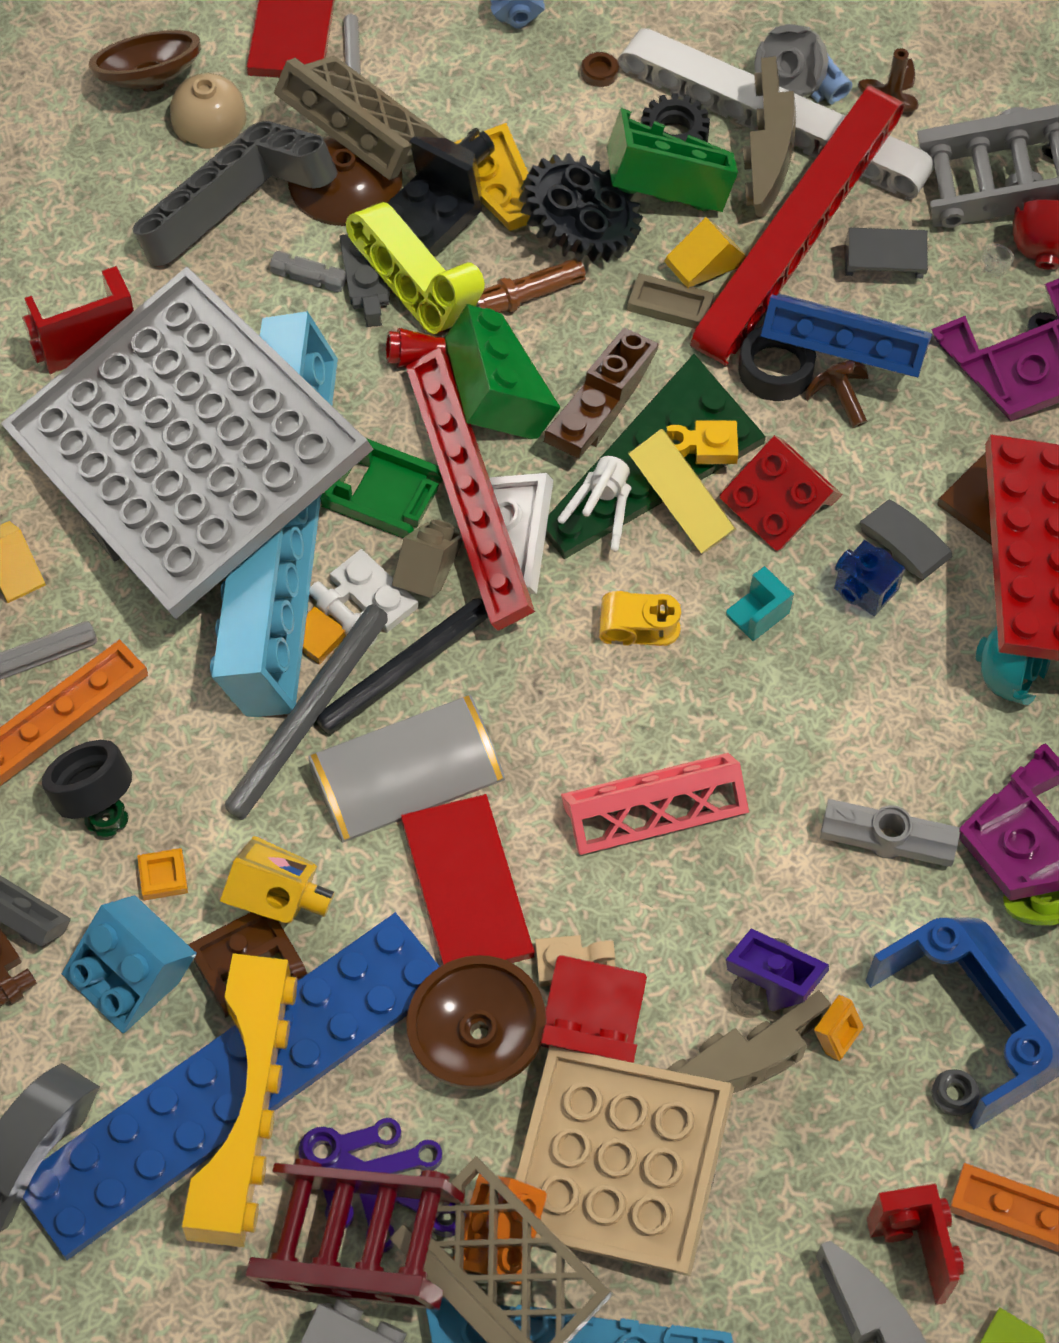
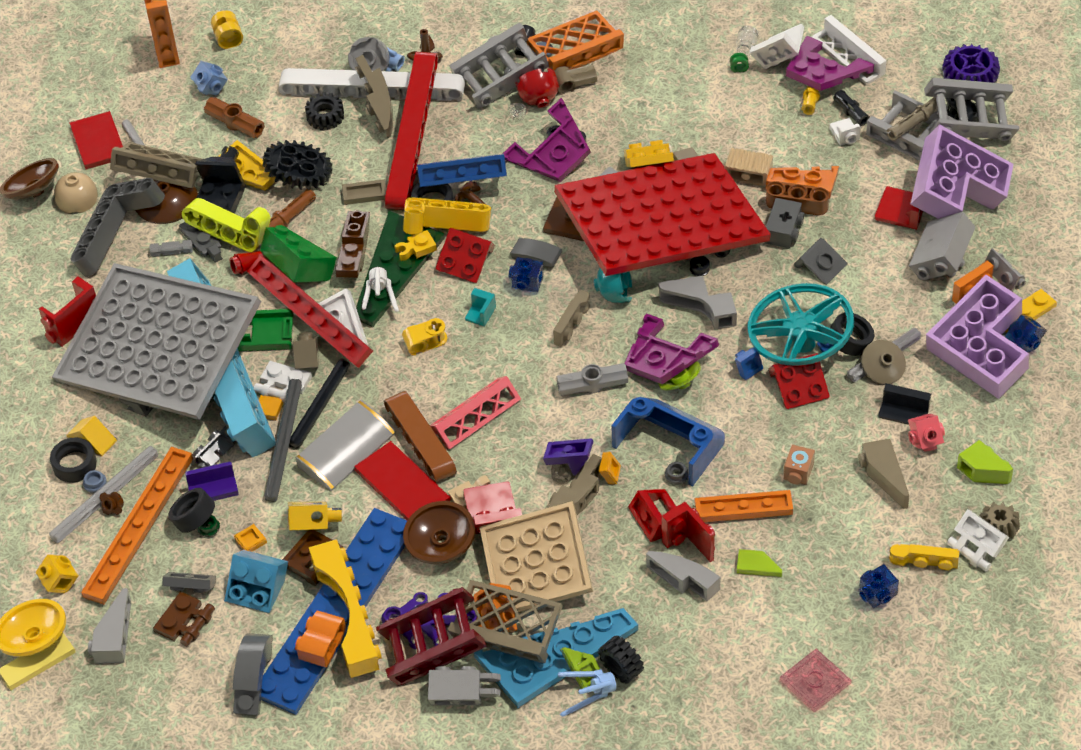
camera: 20 degrees left, 10 degrees down
(154, 739) = (216, 480): none -> dark purple panel
(169, 1141) = (320, 638): none -> orange brick
(170, 679) = (218, 442): none -> dark grey hinge
(523, 80) = (234, 117): none -> dark orange piece
(539, 810) = (421, 436): none -> dark orange beam
(600, 69) = (270, 98): reddish brown tile -> none
(667, 167) = (332, 129): green wedge -> none
(682, 491) = (416, 272): light yellow tile -> none
(704, 254) = (371, 162): yellow slope -> none
(778, 403) = (445, 214): none -> yellow beam
(864, 1153) = (647, 513): none -> red tile
(886, 250) = (460, 126): dark grey hinge -> none
(910, 692) = (573, 315): none -> dark tan hinge

